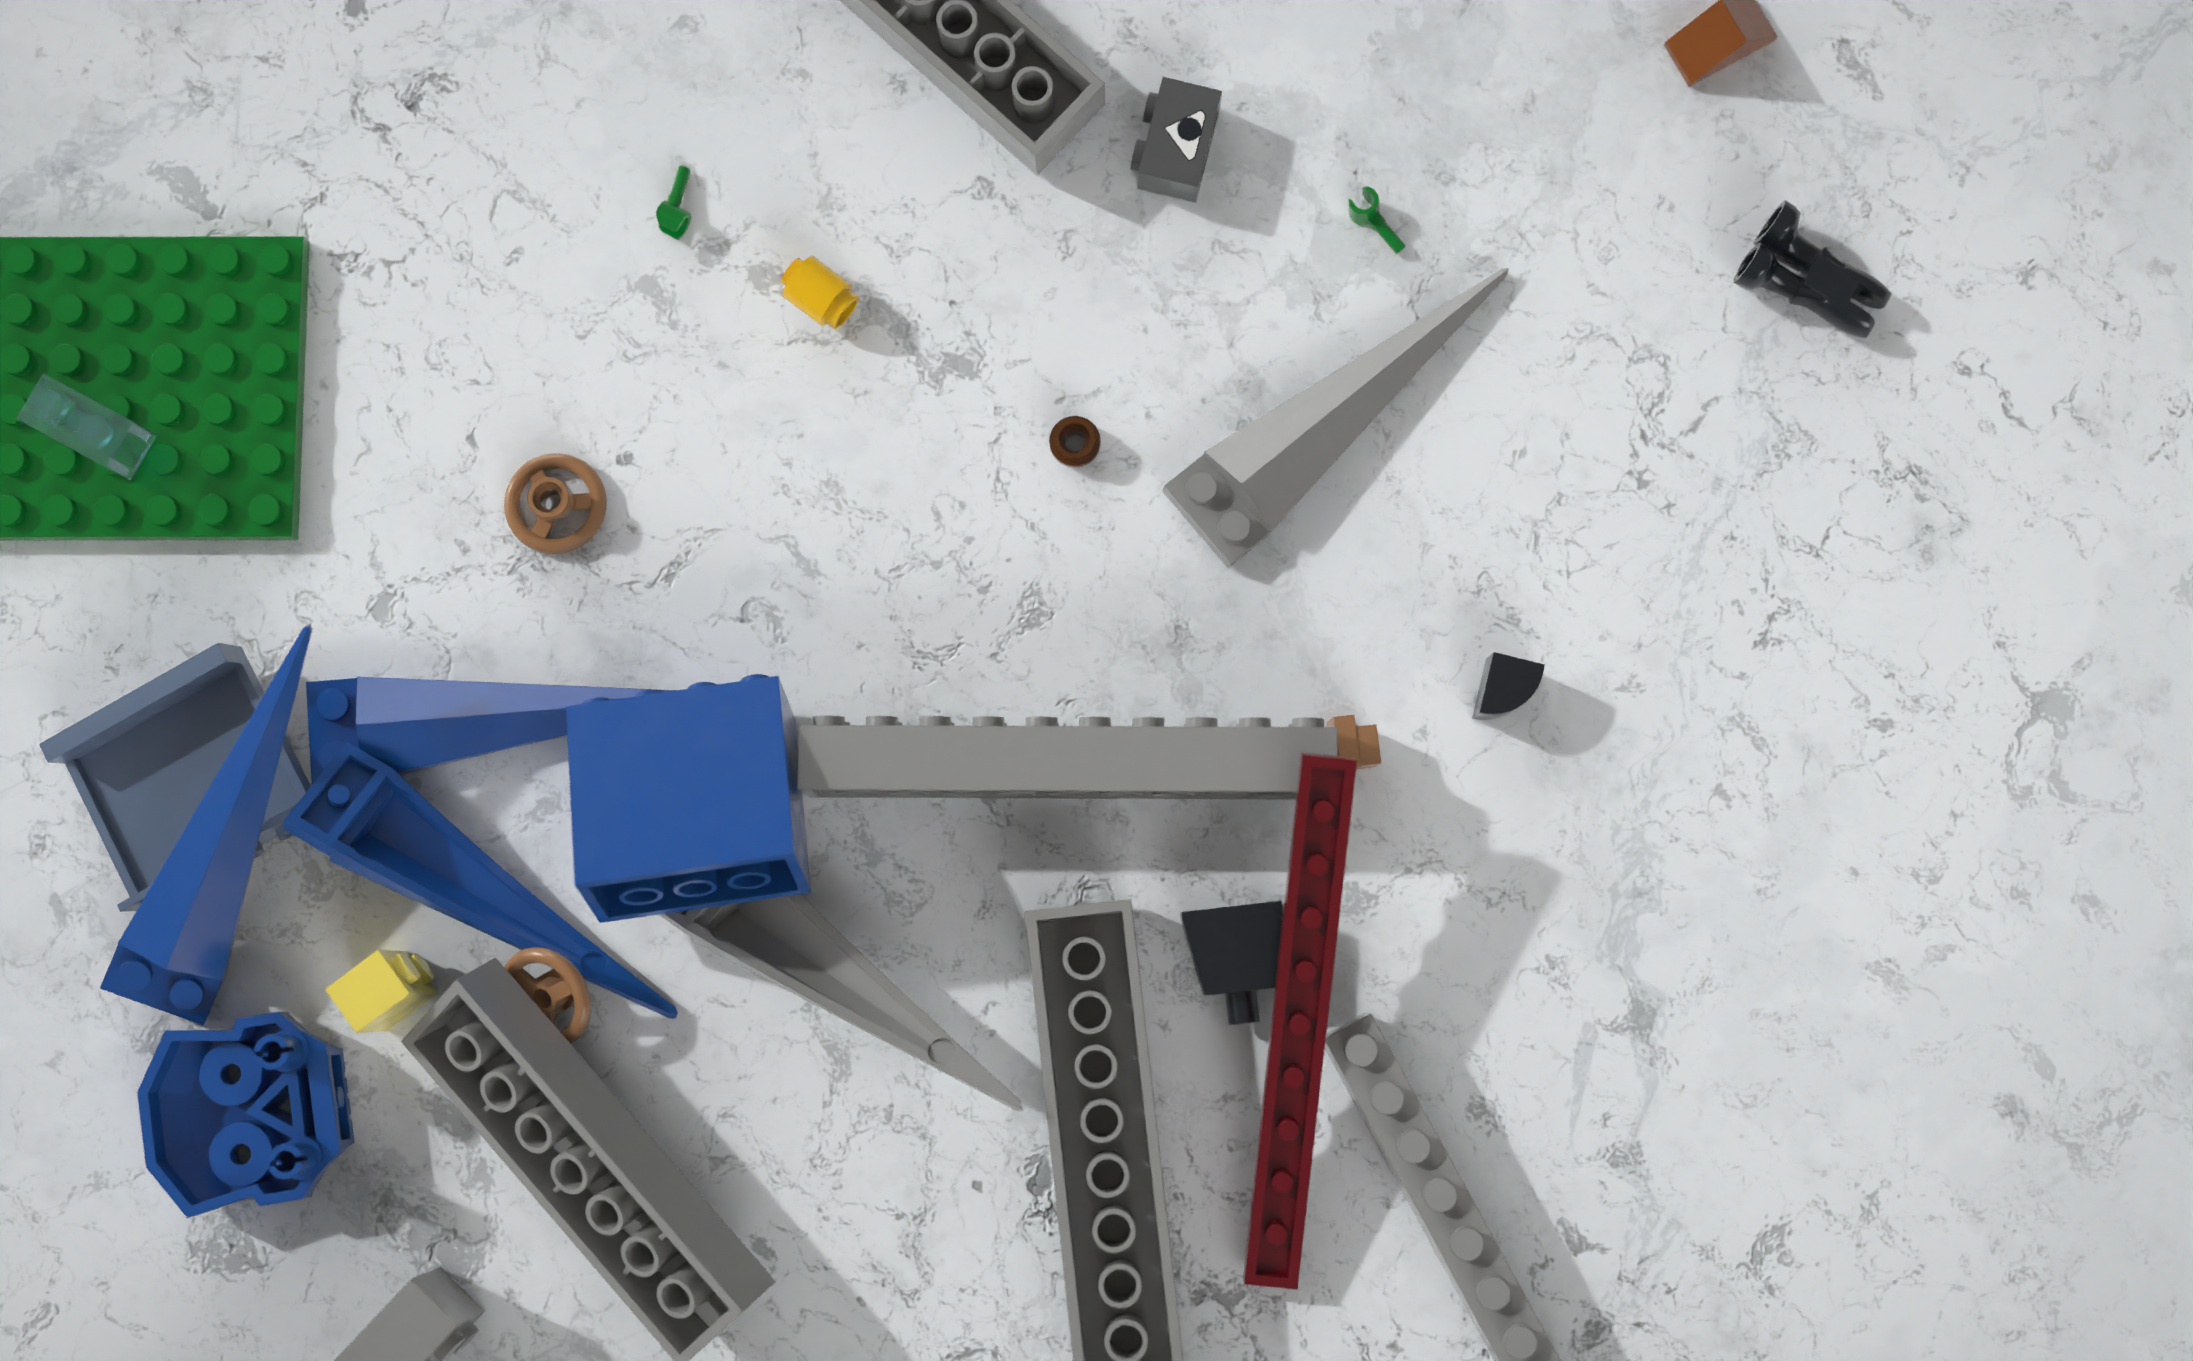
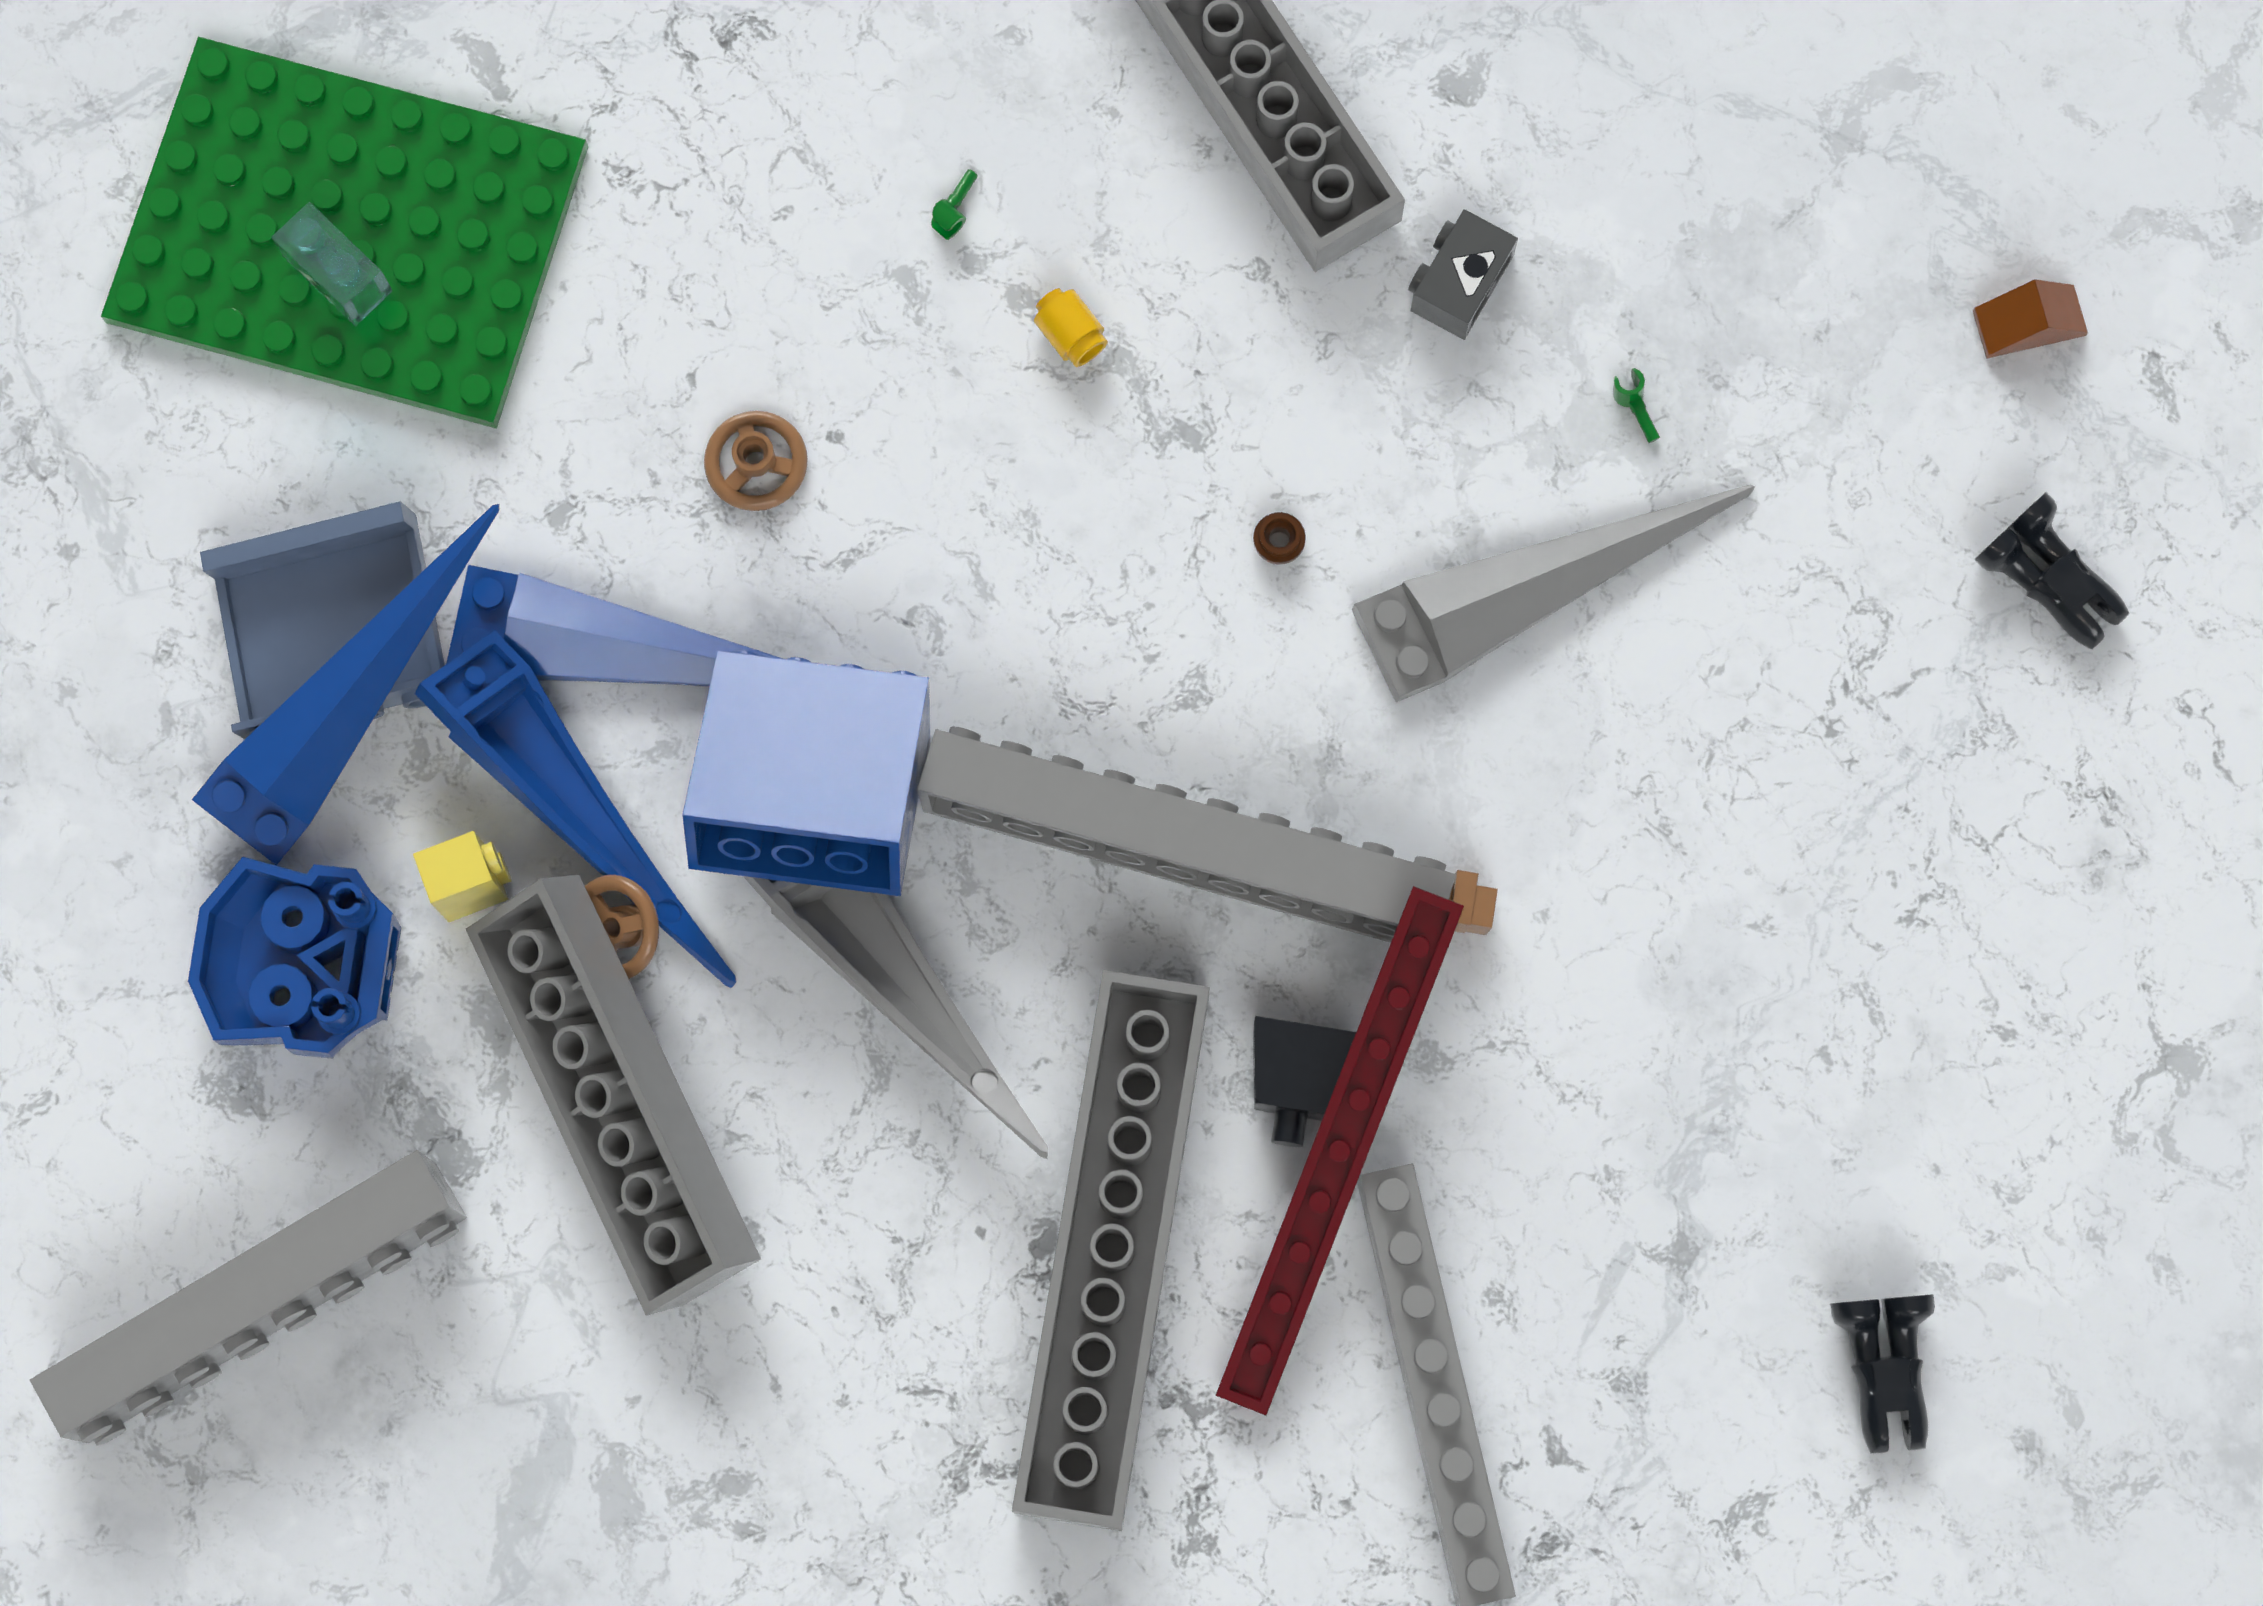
camera: 15 degrees right, 5 degrees down
(1506, 685) = (1638, 889): black brick -> none
(1868, 1089) = (1893, 1380): none -> black piece

